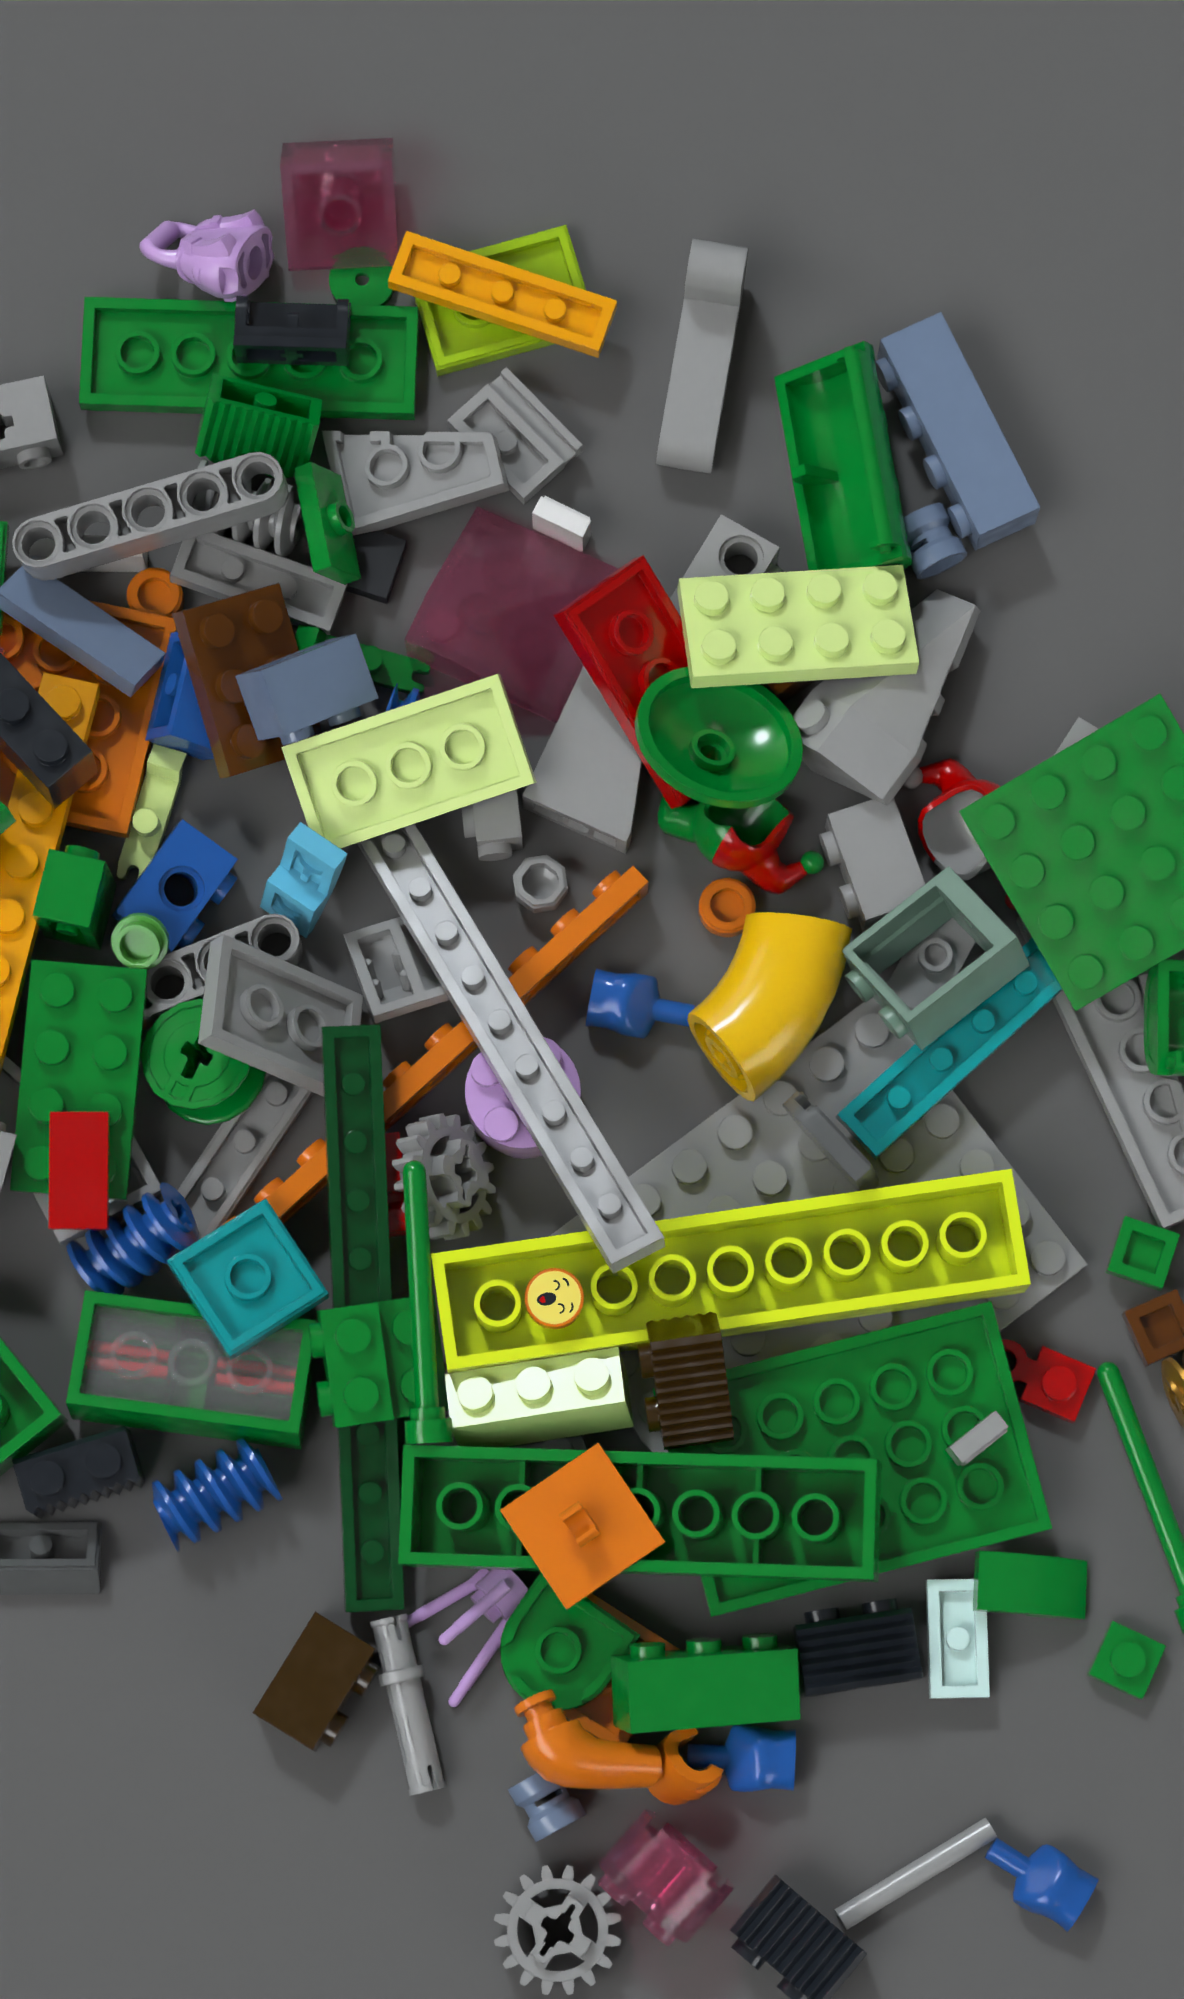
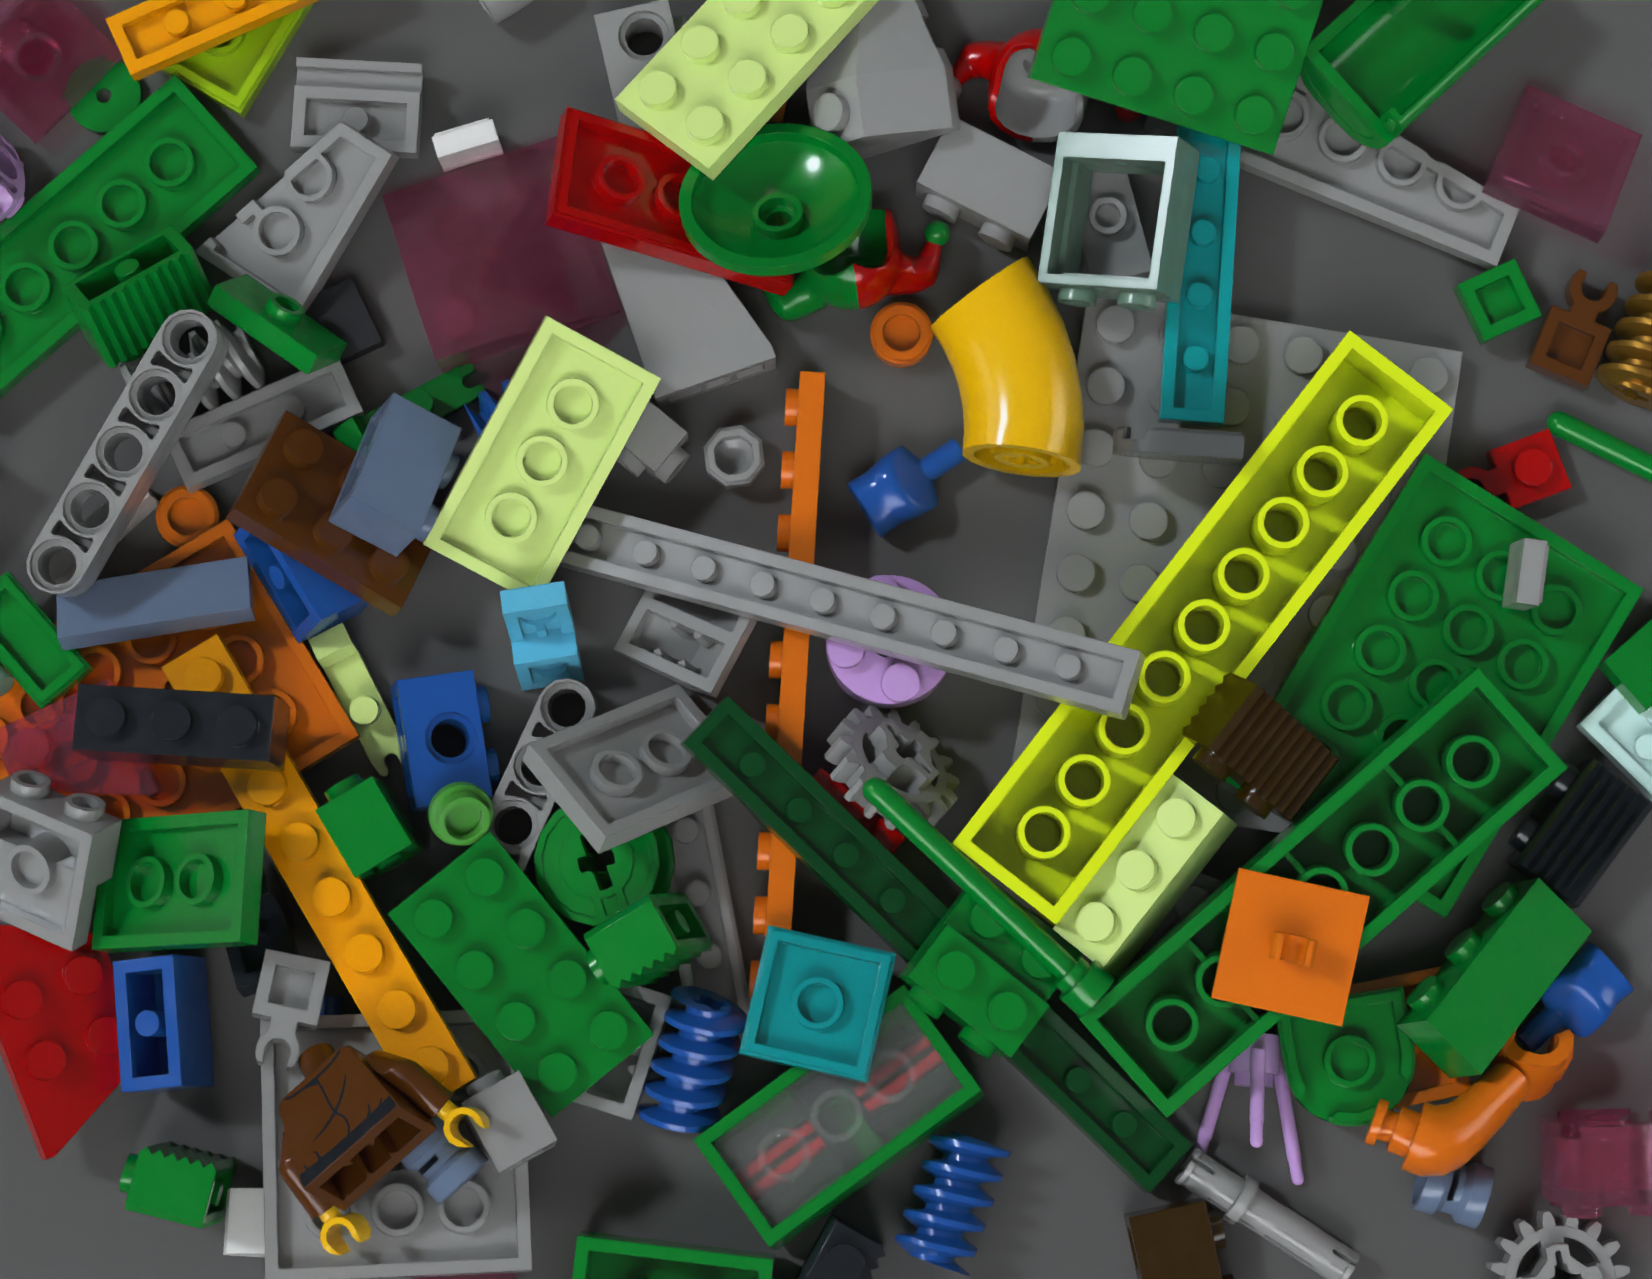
camera: 45 degrees left, 5 degrees up
(78, 1171) = (597, 1049): red tile -> none
(179, 1134) = (646, 941): none -> green brick
(292, 333) = (93, 191): black hinge -> none
(554, 1298) = (1089, 784): light yellow tile -> none

